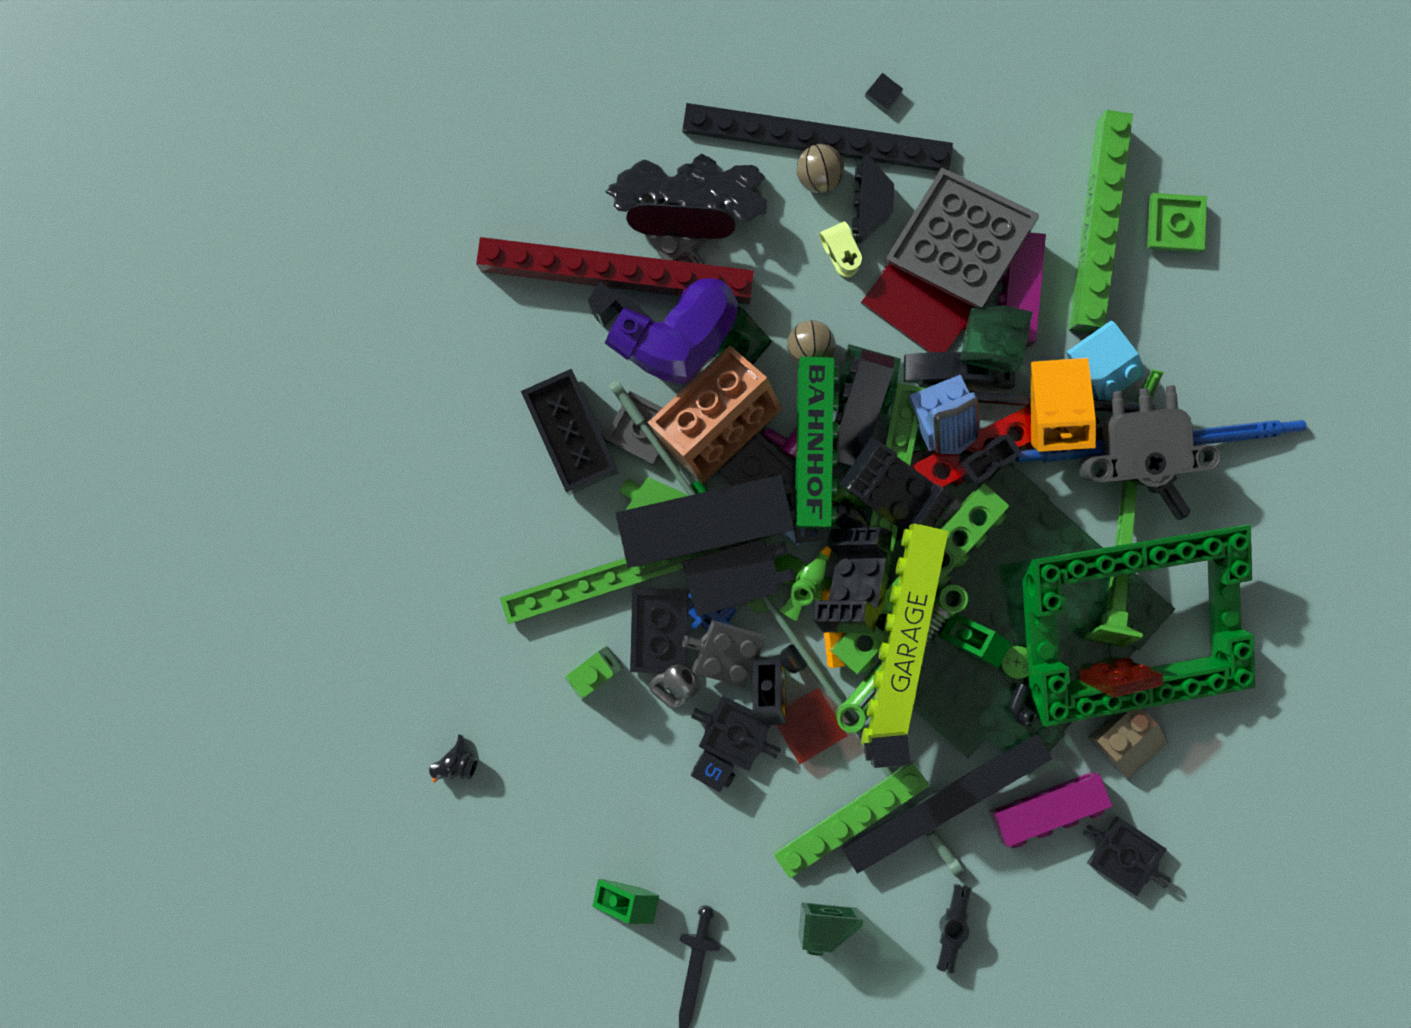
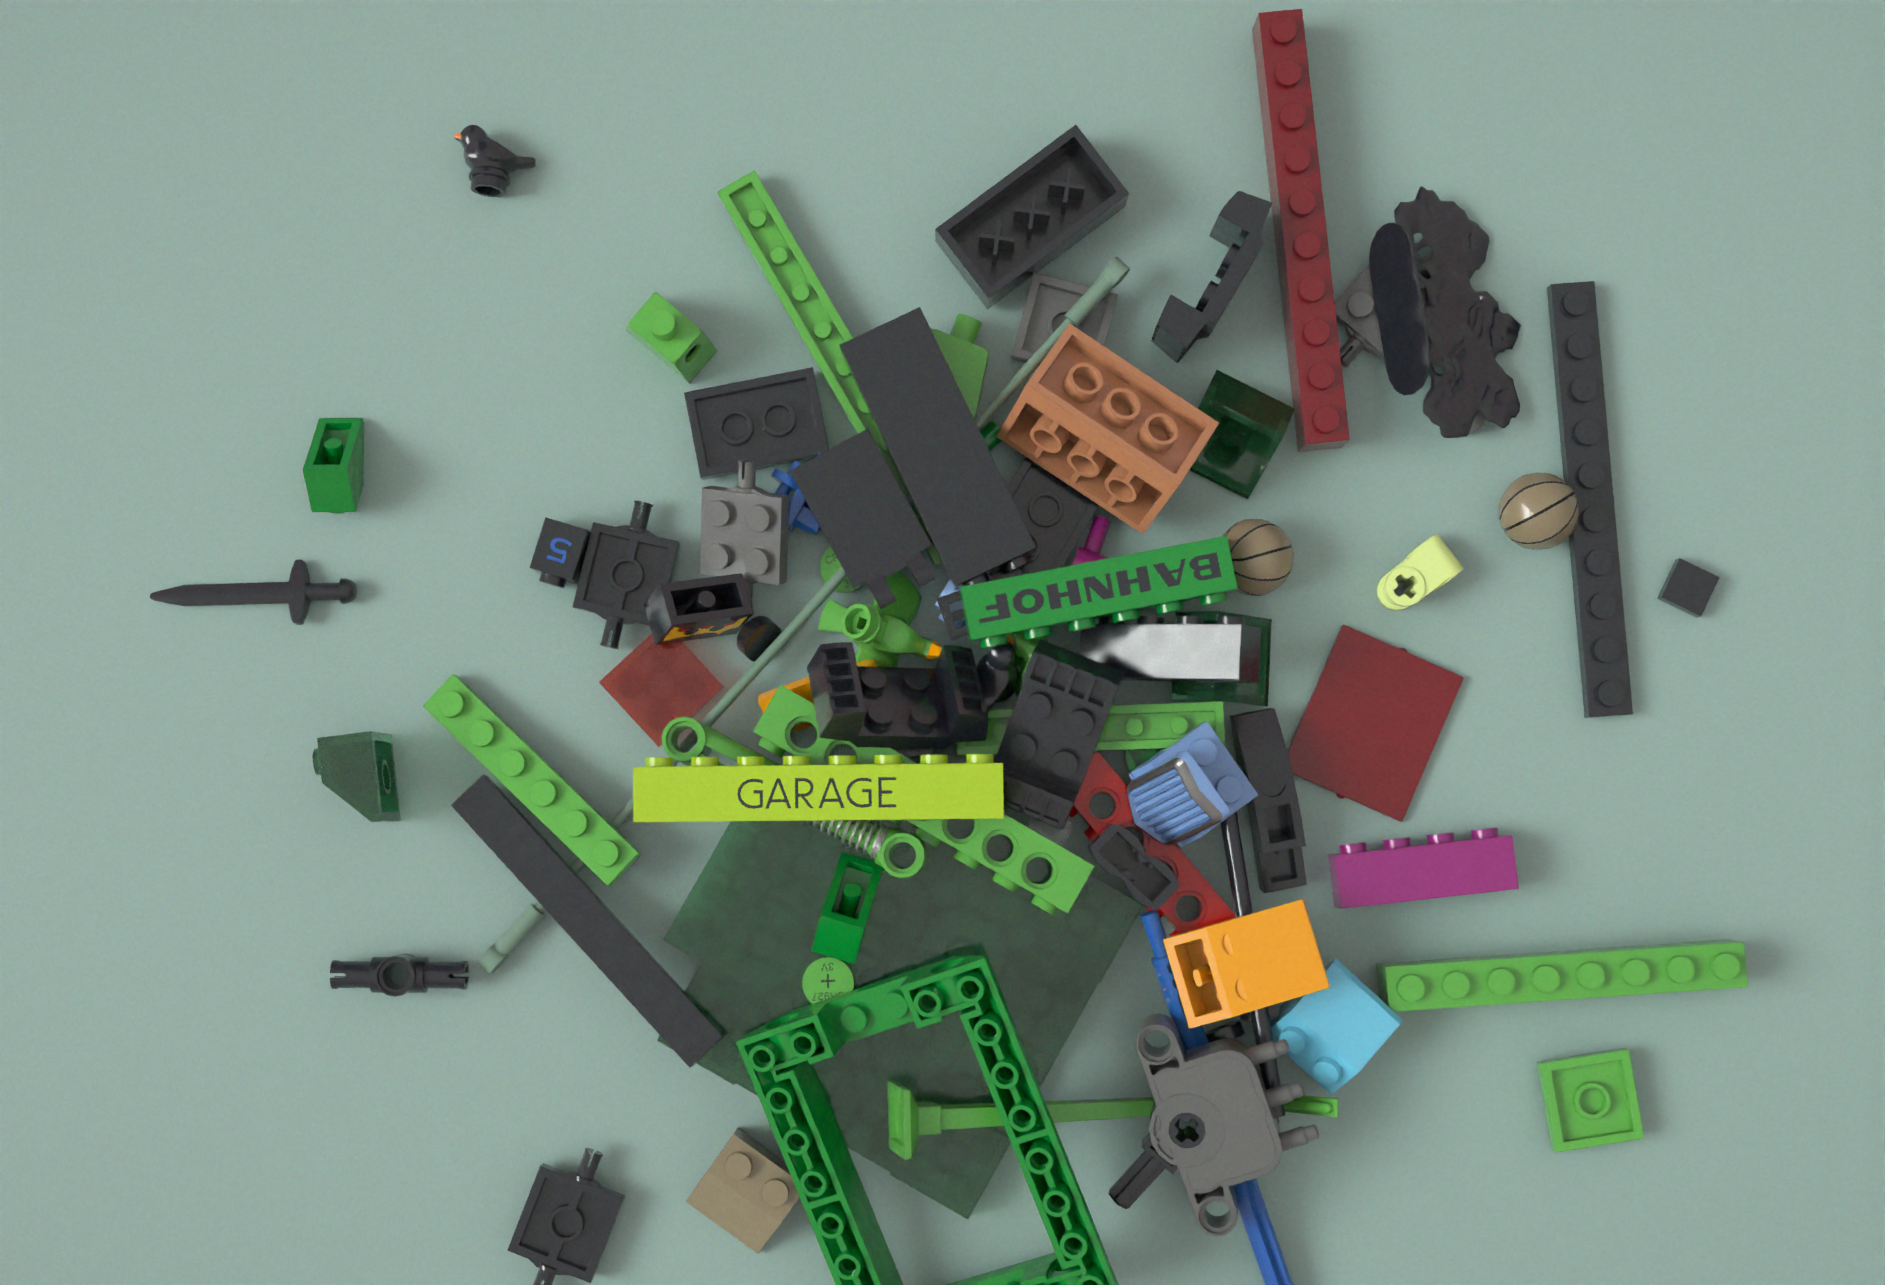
camera: 80 degrees right, 0 degrees up
(678, 681) = (684, 469): flat silver piece -> none
(685, 339) = (1218, 351): dark purple piece -> none
(872, 200) = (1508, 605): black slope -> none
(887, 750) = (643, 791): black brick -> none
(962, 238) = (1479, 757): dark grey plate -> none
(996, 338) = (1330, 839): clear green slope -> none
(1019, 707) = (759, 999): black arm -> none
(1051, 809) = (613, 1088): magenta brick -> none
(1121, 677) = (838, 1147): clear red plate -> none

